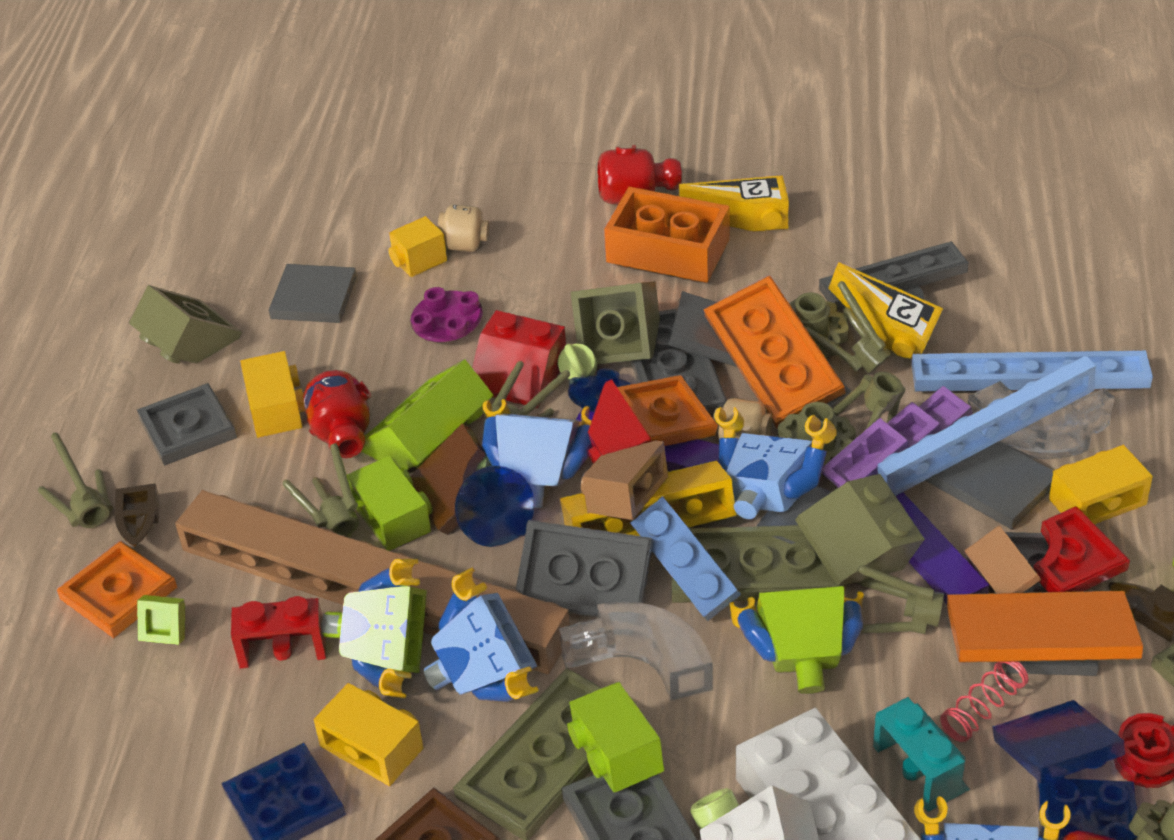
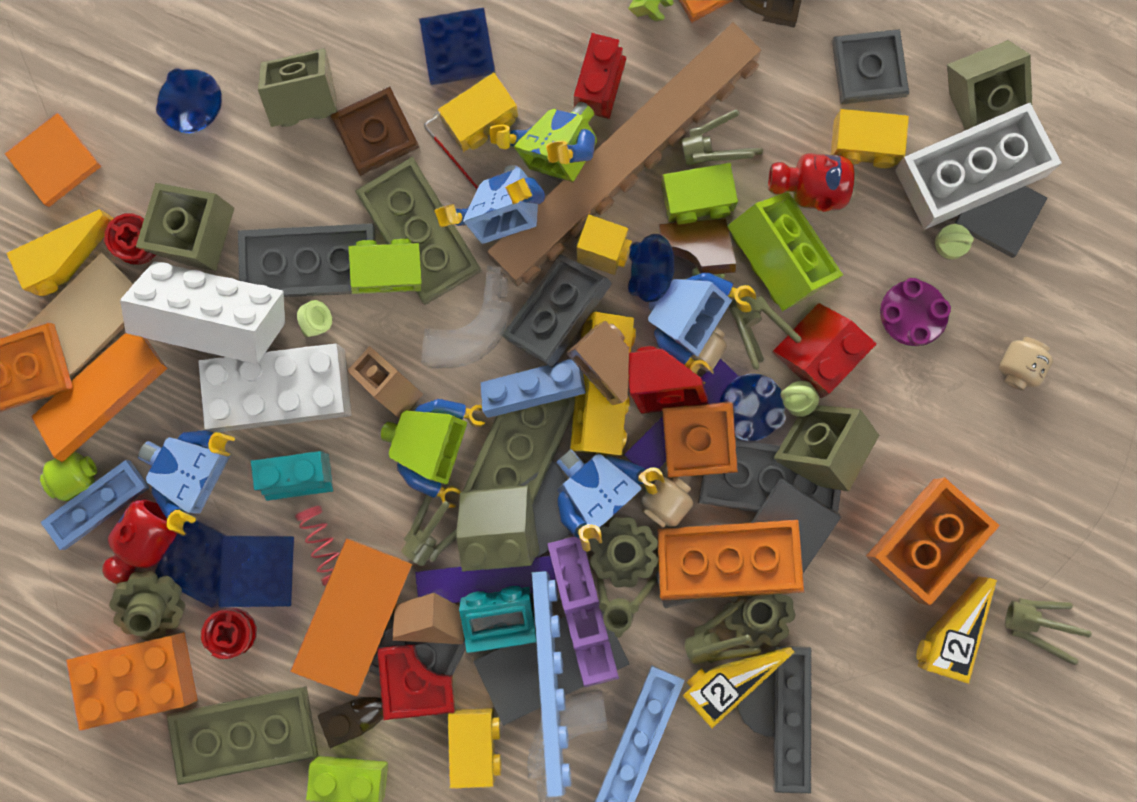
camera: 115 degrees right, 40 degrees up
(277, 304) = (977, 165): none -> white brick
(358, 311) = (953, 241): none -> yellowish green tile
(417, 246) = (1018, 315): yellow brick -> none
(437, 754) = (447, 152): none -> red piece
(490, 542) = (603, 245): none -> yellow brick
(636, 169) = (1038, 546): red piece -> none
(700, 168) = (1024, 618): none -> olive plant
(753, 701) = (385, 382): none -> medium nougat slope
(954, 504) = (498, 619): none -> teal window

